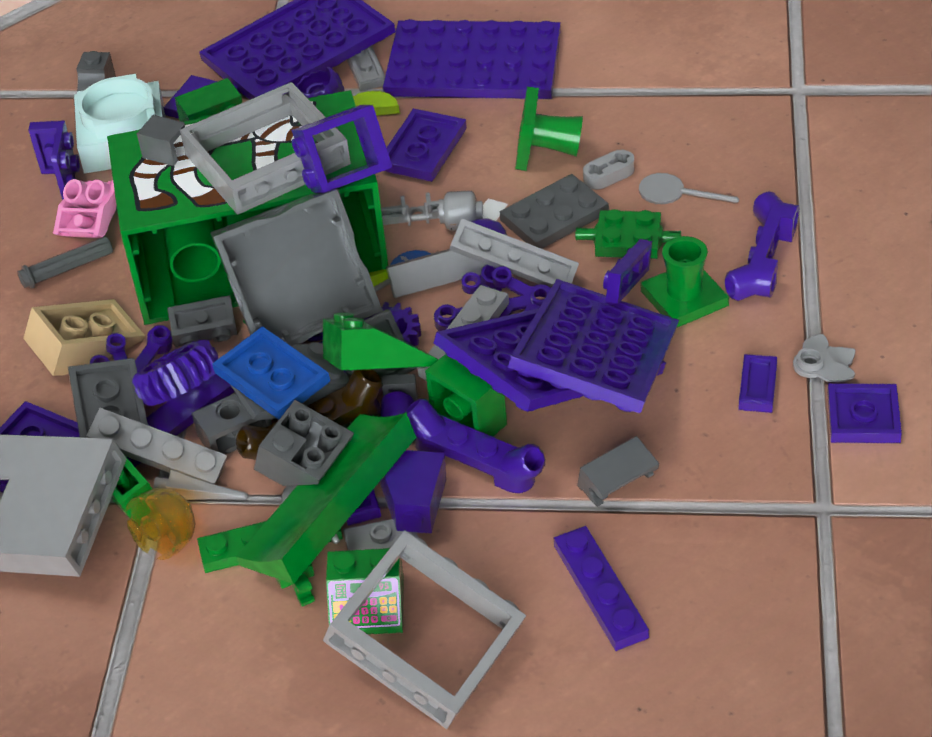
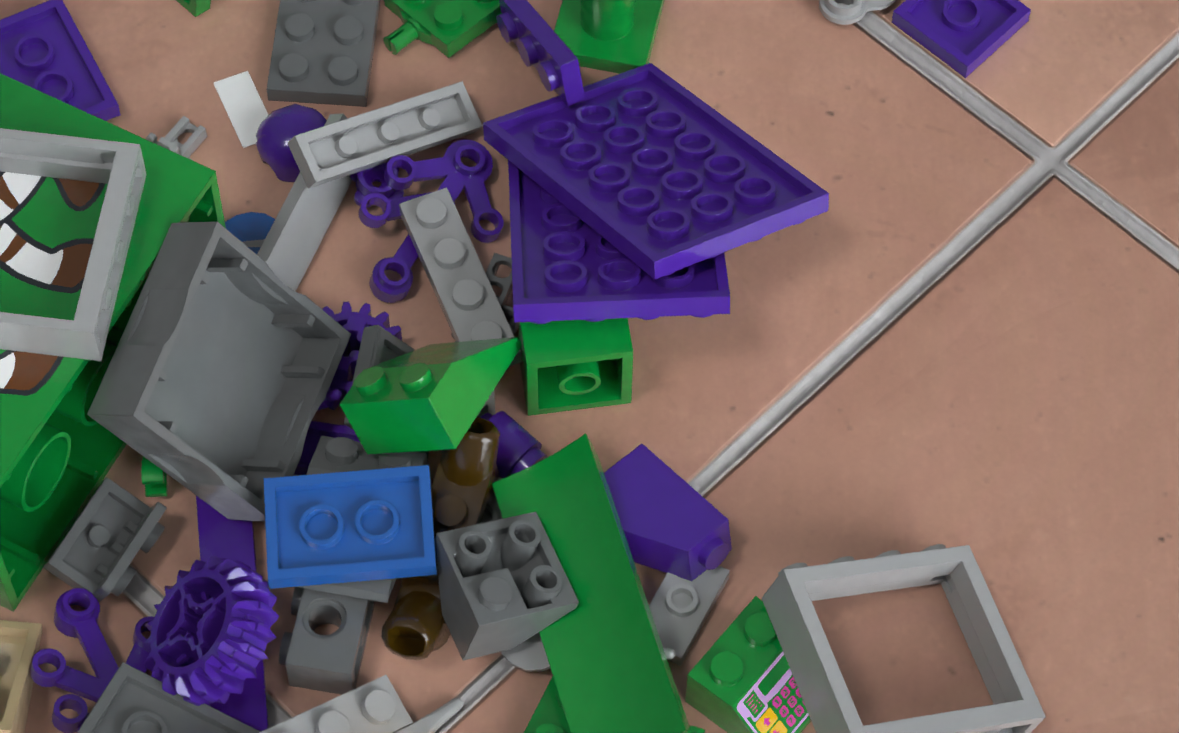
camera: 55 degrees left, 15 degrees up
(370, 139) = (164, 111): dark purple window -> none
(457, 206) = (226, 126): light grey head -> none
(510, 465) = (701, 395): dark purple plate -> none
(601, 588) = (967, 445): dark purple plate -> none
(616, 470) = (827, 301): dark grey hinge -> none
(758, 383) = (818, 70): dark purple tile -> none

